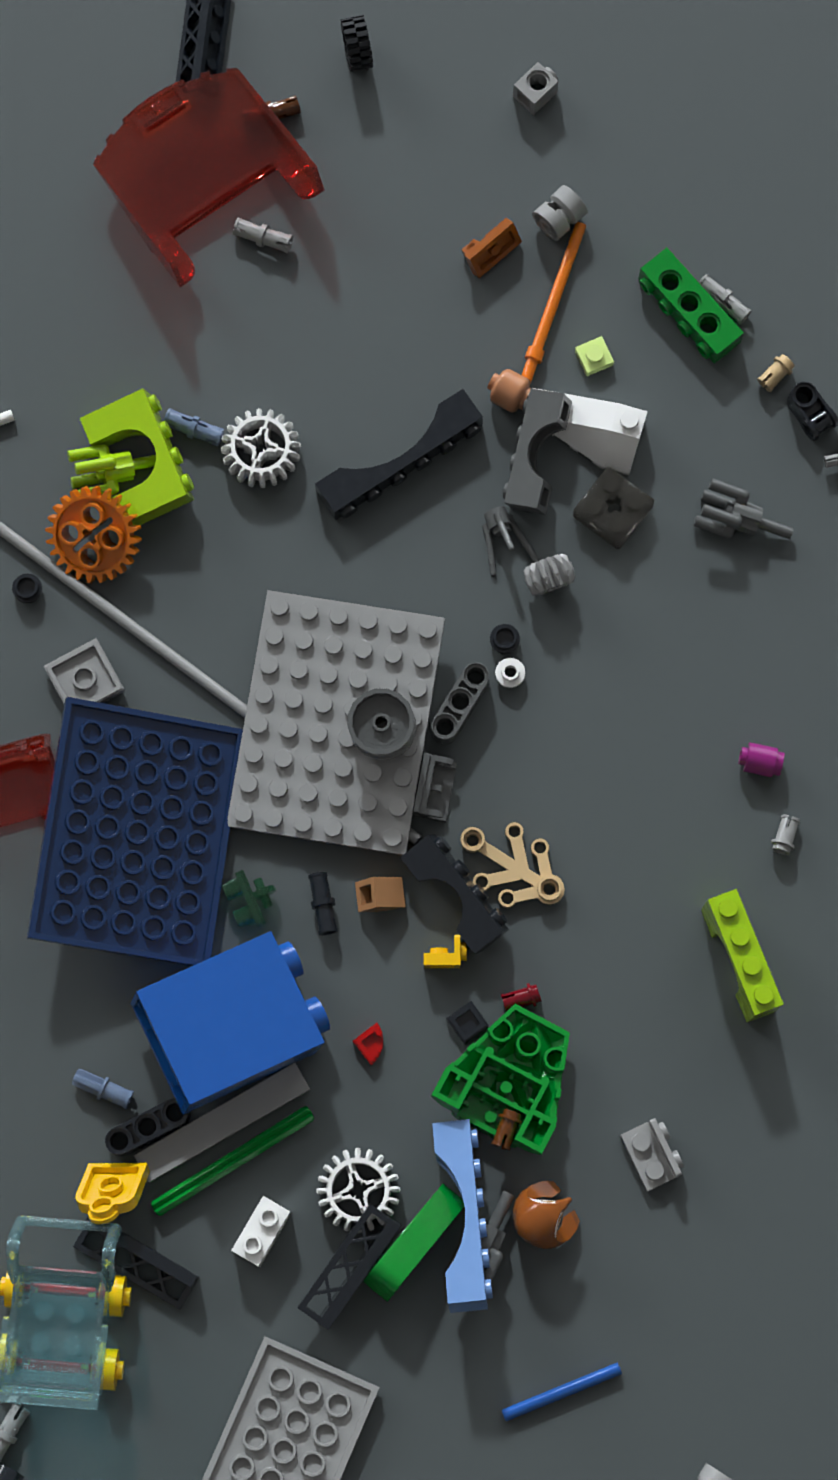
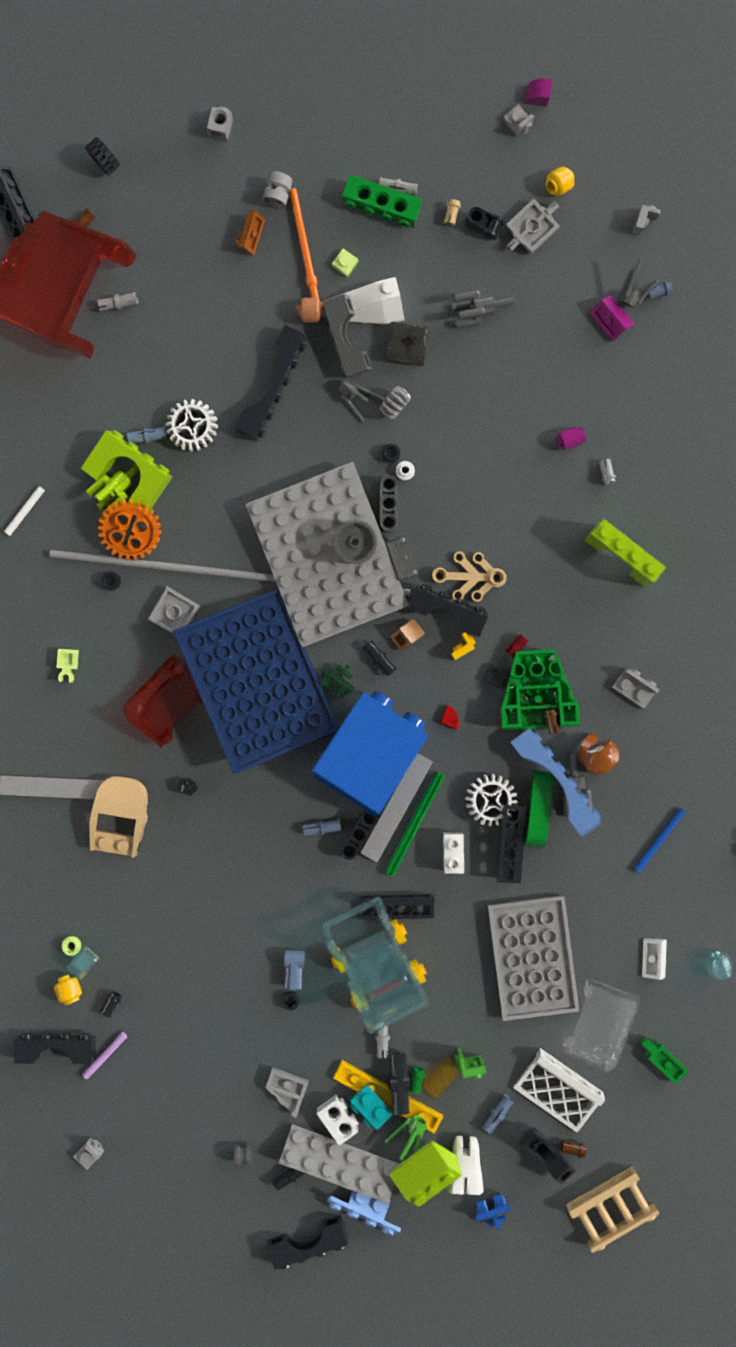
camera: 25 degrees left, 10 degrees up
(111, 1189) = (361, 880): yellow plate -> none

